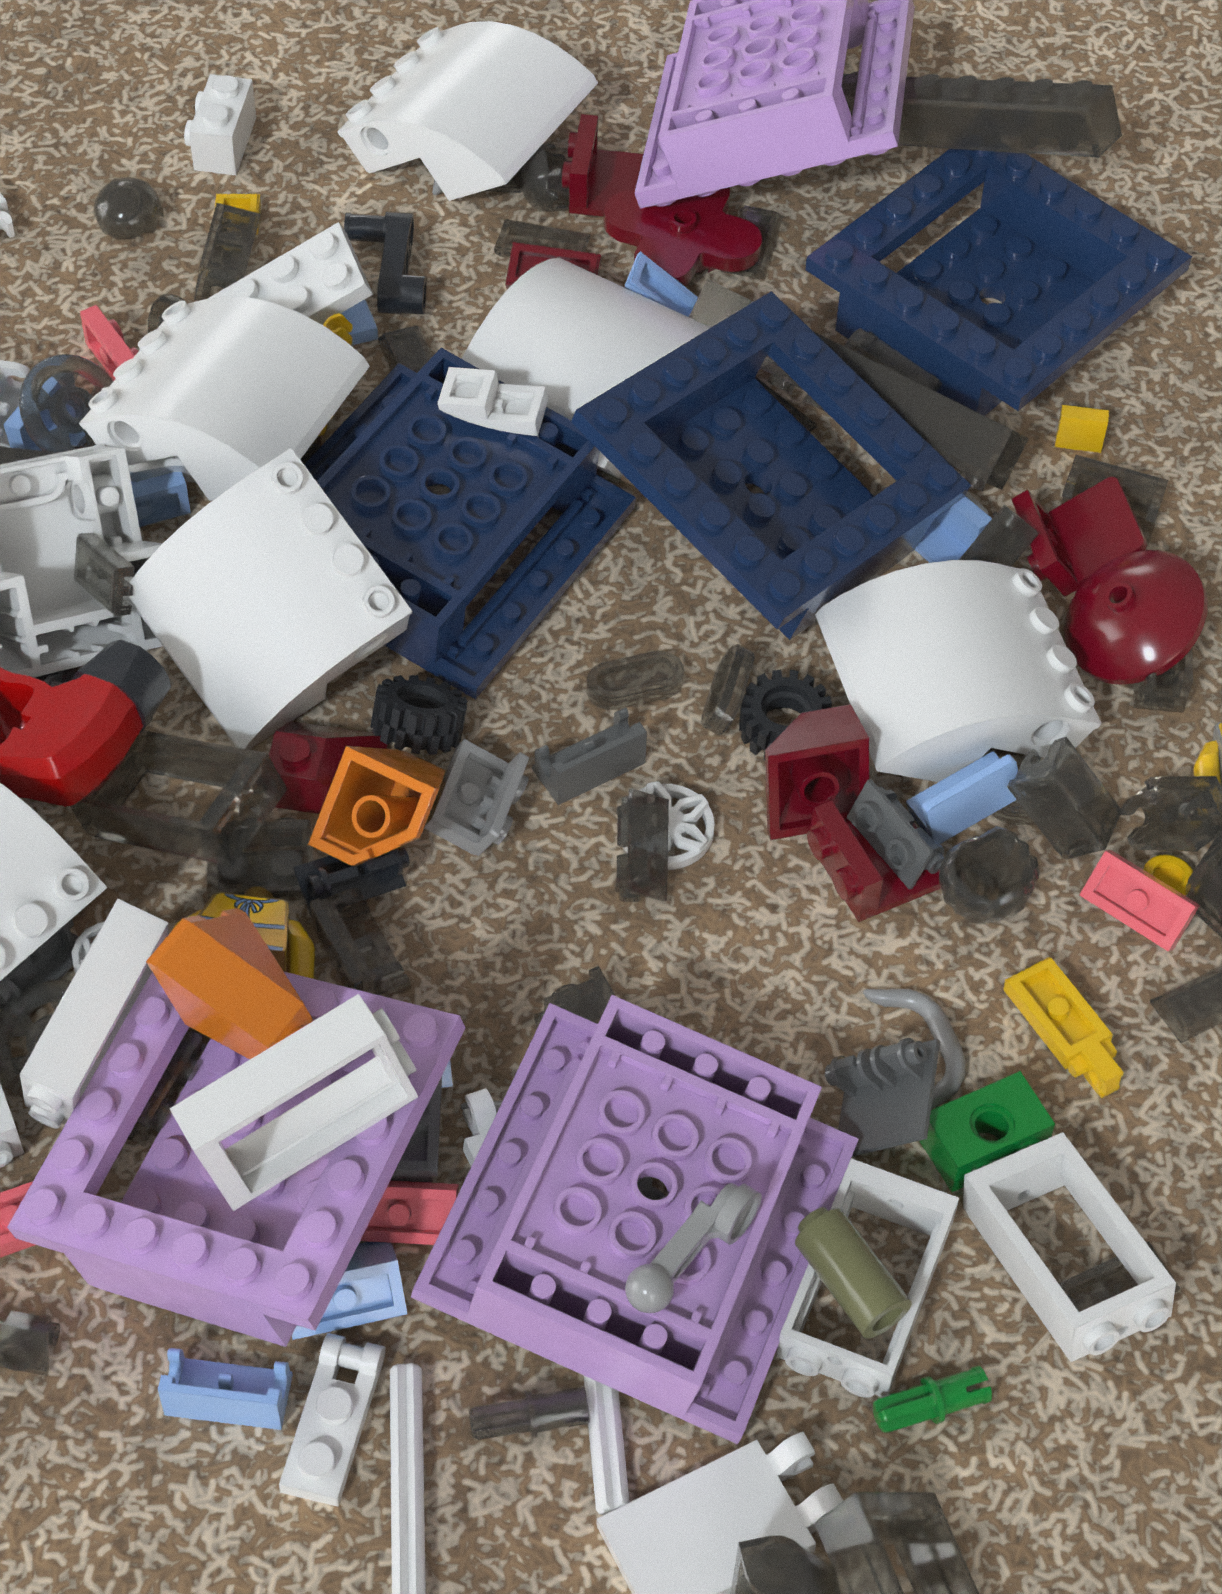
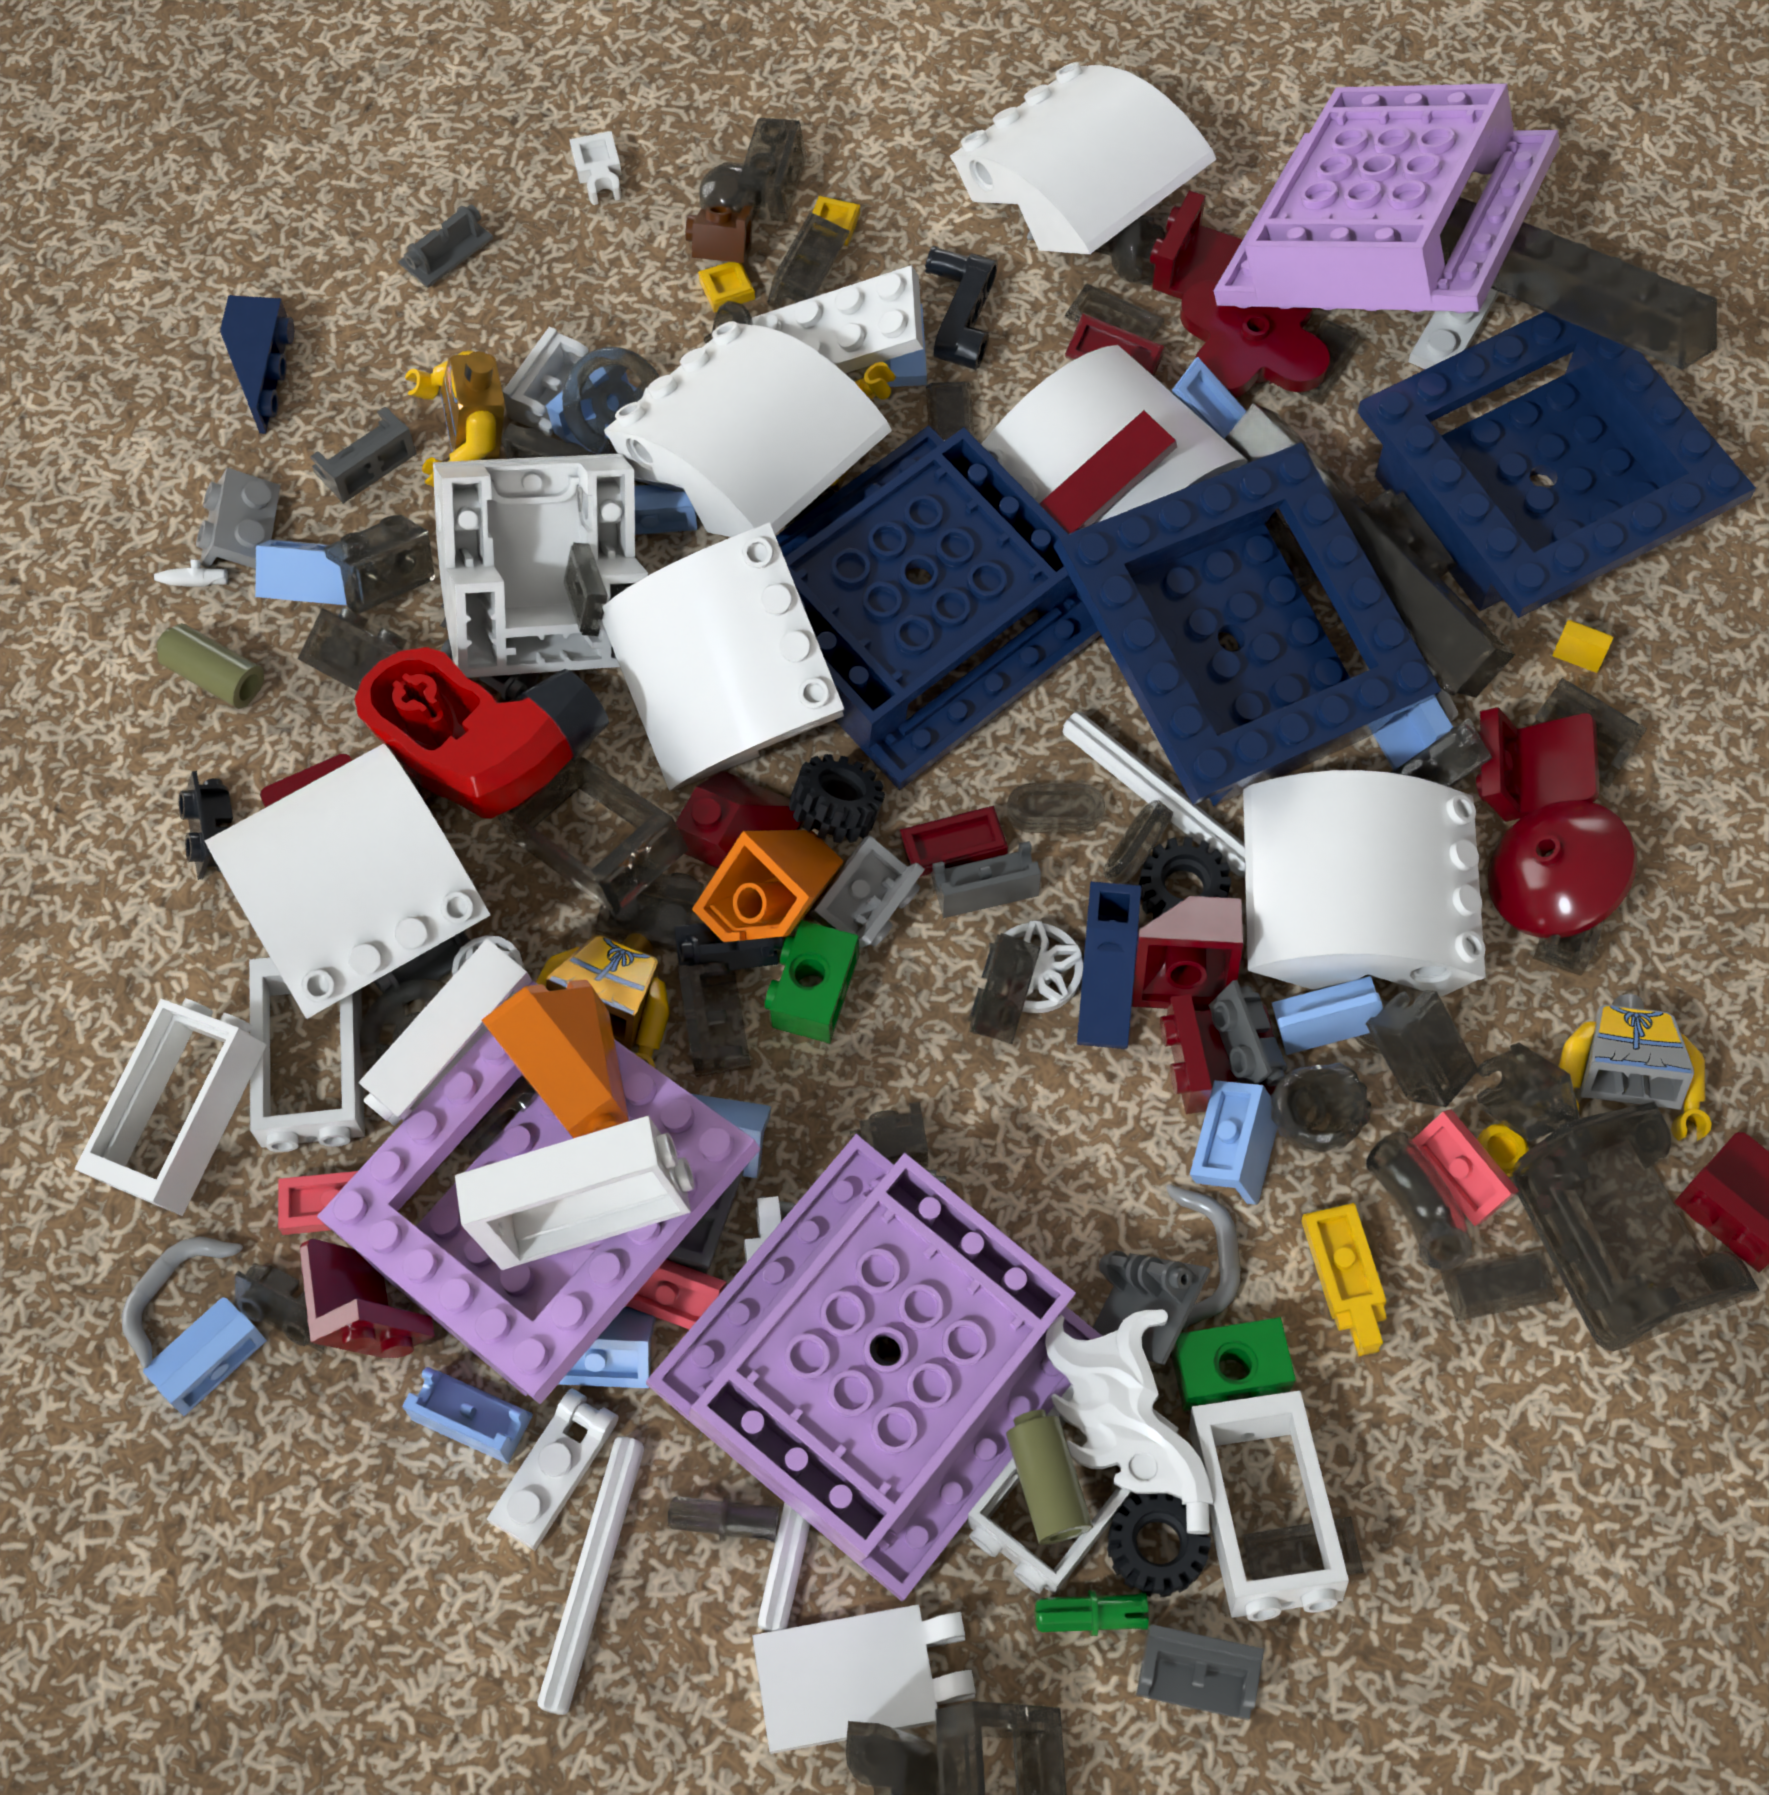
camera: 20 degrees right, 10 degrees up
(77, 1314) = (351, 1306): none -> dark red bracket
(105, 339) = (669, 333): coral plate -> none
(129, 242) = (720, 233): none -> reddish brown brick
(145, 287) = (725, 284): none -> yellow tile
(165, 171) = (775, 164): none -> clear smoke bracket
(221, 124) = (844, 122): white brick -> none
(453, 861) = (814, 1009): none -> green brick
(481, 400) = (988, 497): white slope -> none
(553, 724) = (955, 840): none -> dark red tile
(598, 356) = (1109, 473): none -> dark red tile
(652, 1285) = (847, 1452): light grey piece -> none
(720, 638) = (1152, 787): none -> white axle
(739, 800) = (1109, 965): none -> dark blue slope
(861, 187) = (1449, 334): none -> white plate
(893, 1196) = (1117, 1417): none -> white piece
(916, 927) = (1235, 1139): none -> light blue panel
(984, 1286) = (1134, 1567): none -> black tyre
(1056, 1423) = (1200, 1672): none -> dark grey hinge
(1112, 938) = (1423, 1199): none -> clear smoke cylinder

